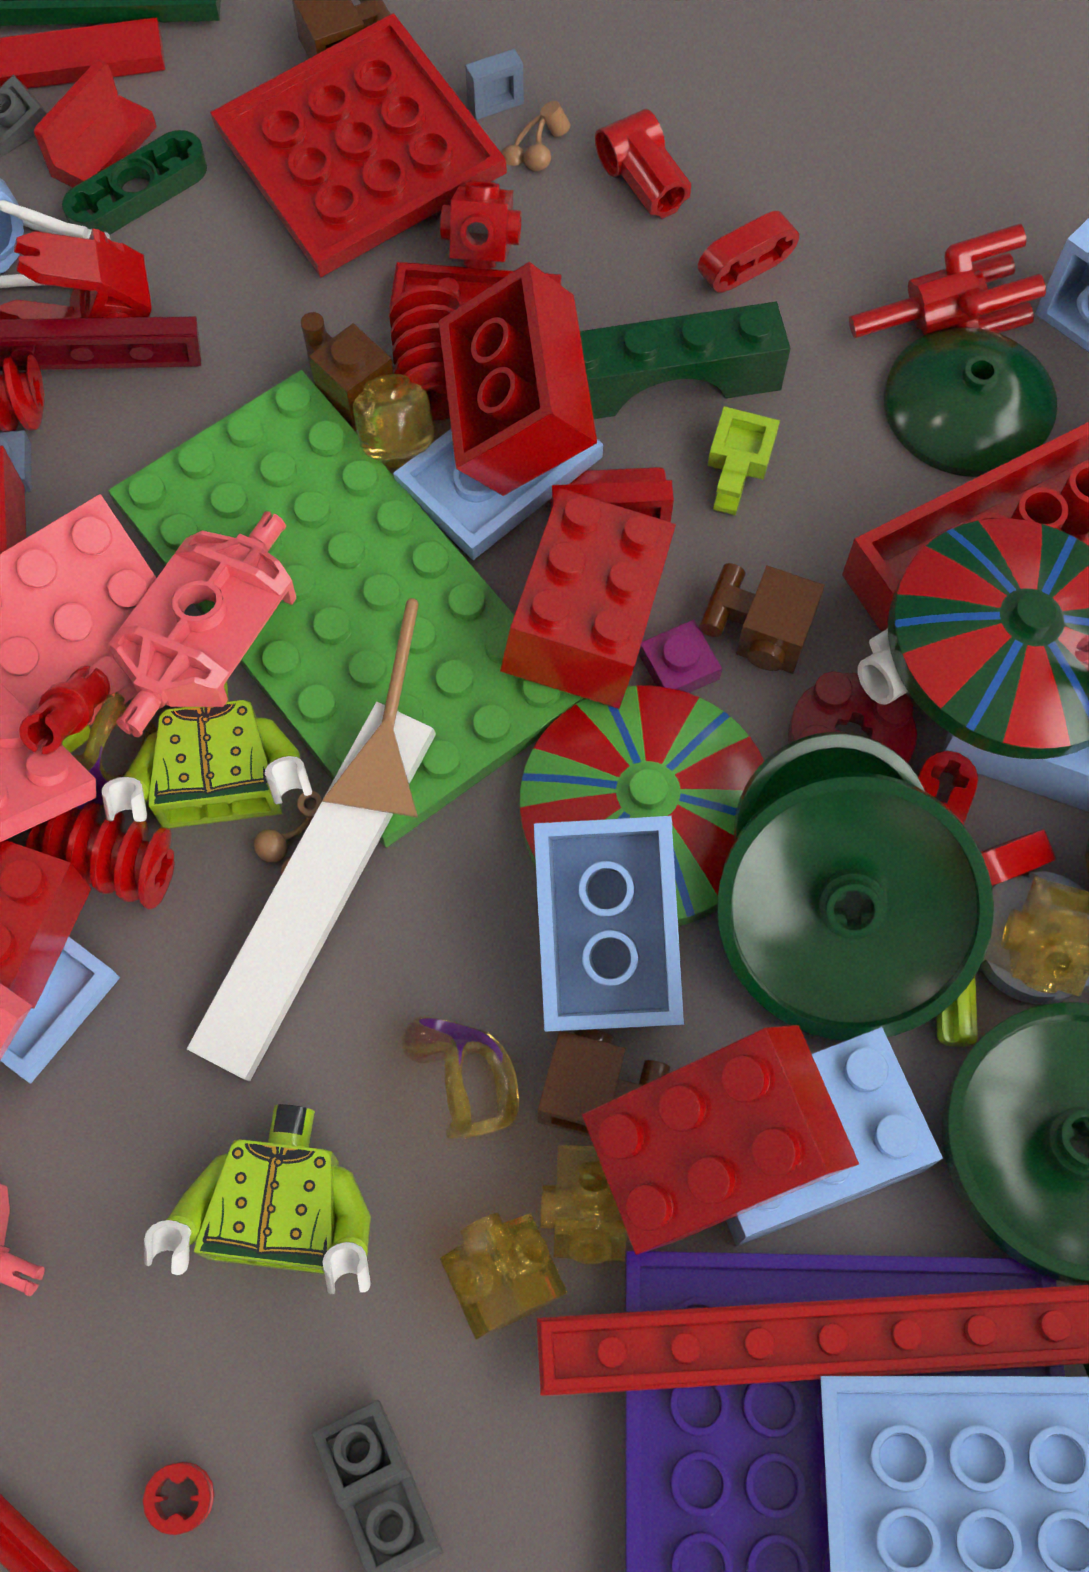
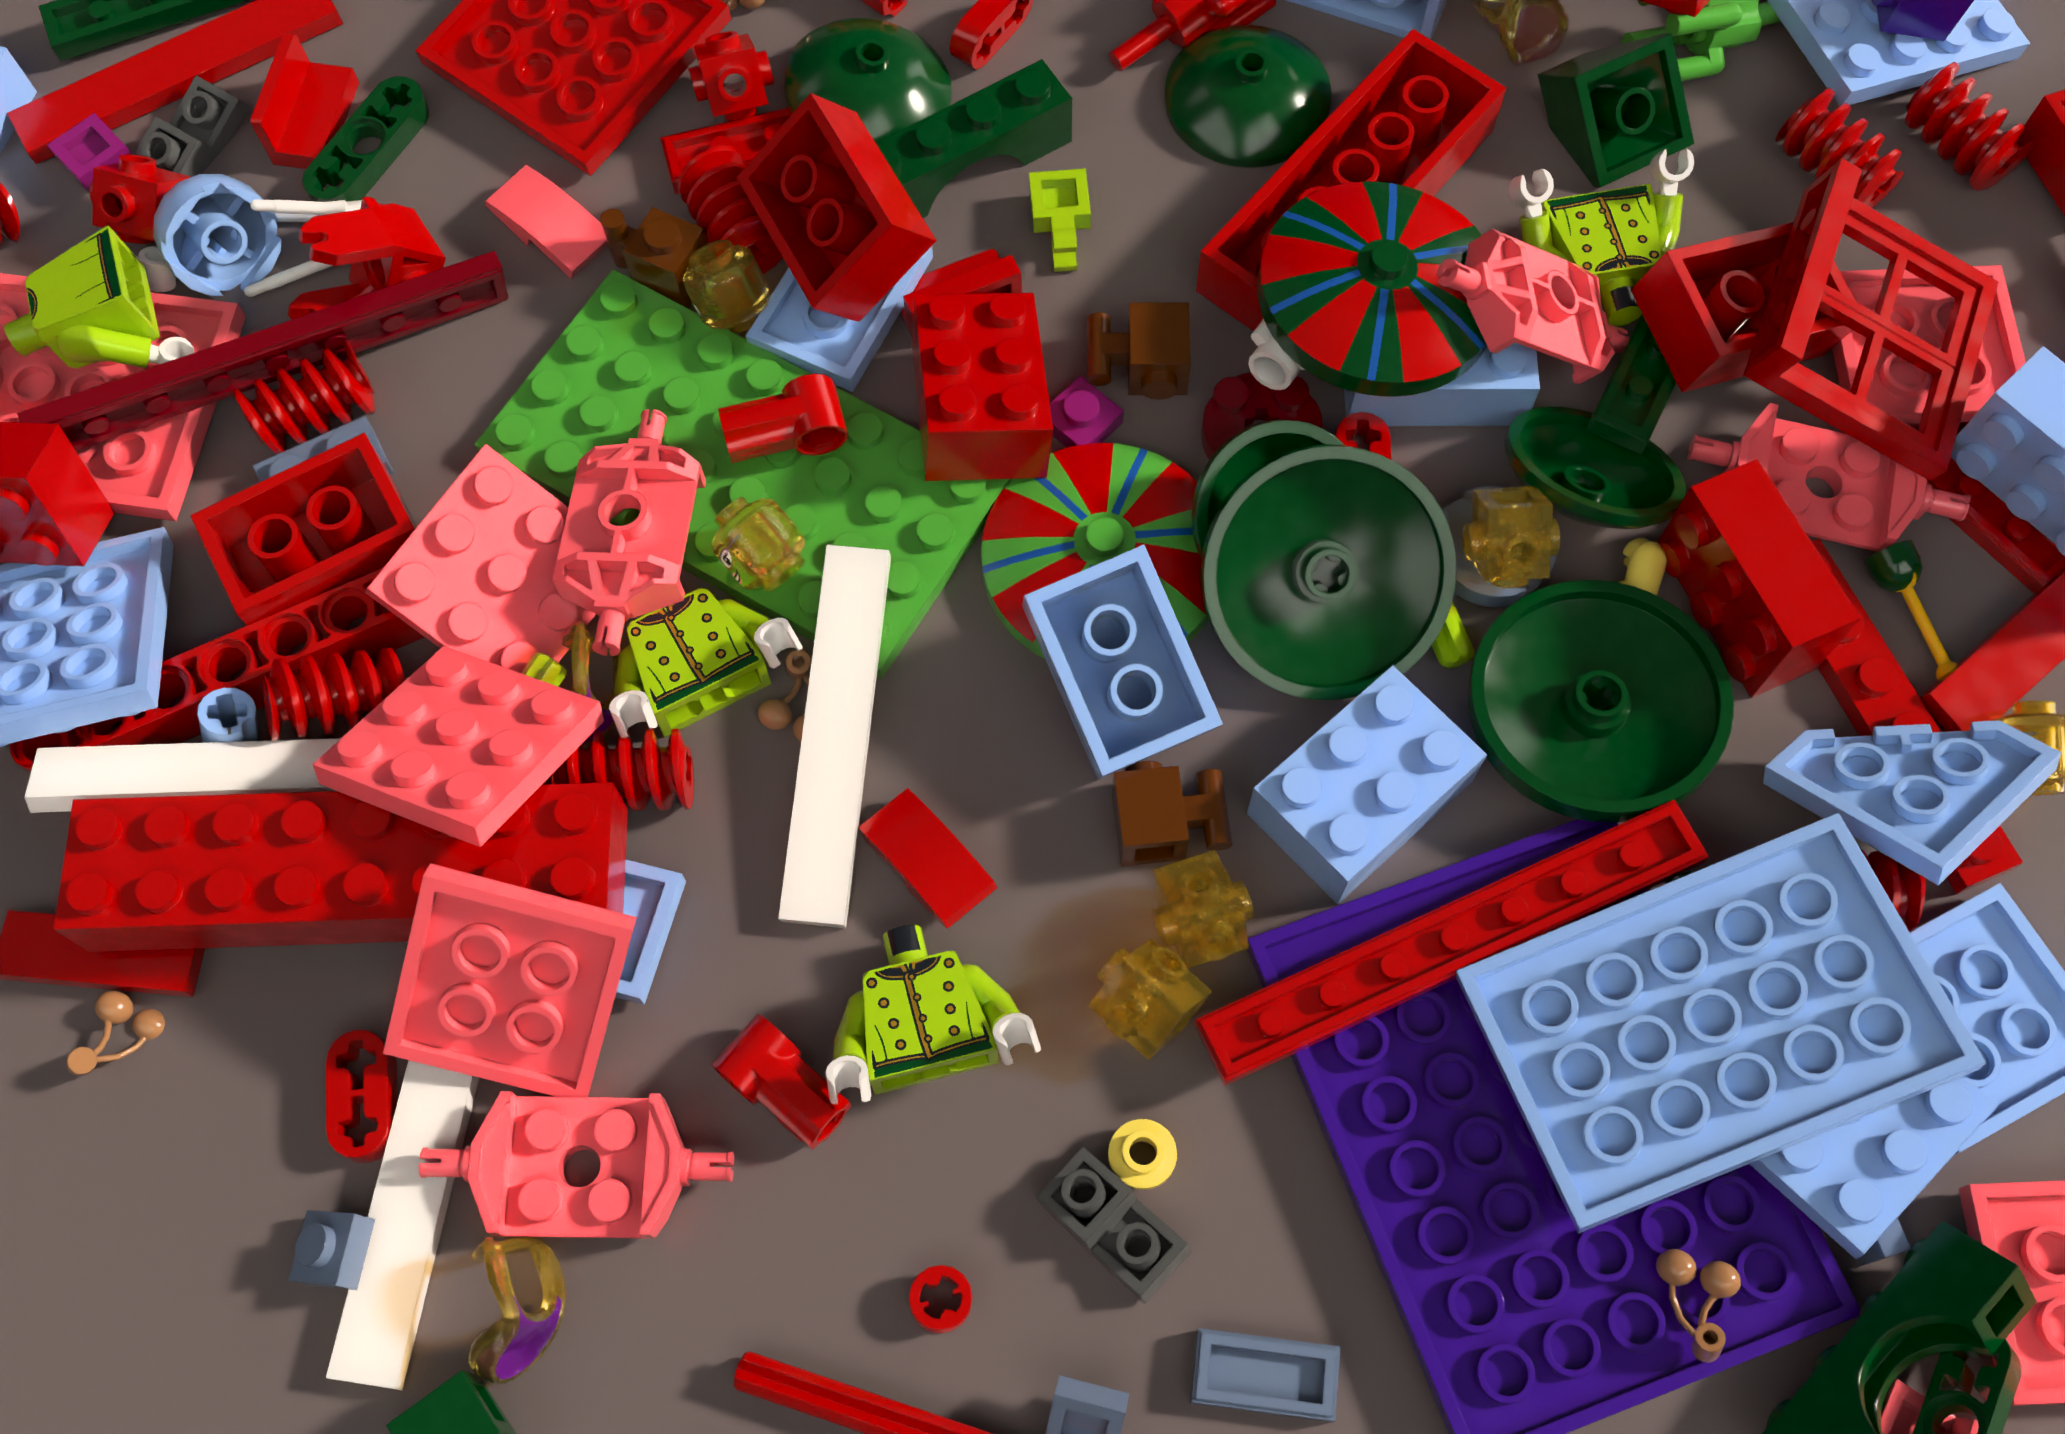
camera: 20 degrees left, 0 degrees up
(64, 710) = (542, 651): red pin -> none
(111, 1199) = (769, 1071): none -> red piece
(263, 304) = (549, 218): none -> coral slope
(313, 677) = (758, 543): none -> clear yellow head
(351, 1044) = (927, 858): none -> red slope
(377, 773) = (854, 609): medium nougat piece -> none
(397, 568) = (800, 418): none -> red piece
(442, 1040) = (1003, 828): clear yellow piece -> none
(458, 1435) = (1136, 1175): none -> light yellow plate
(613, 265) = (872, 70): none -> dark green dish
(719, 1137) = (1295, 801): red brick -> none
(1018, 856) = (1452, 479): red beam -> none

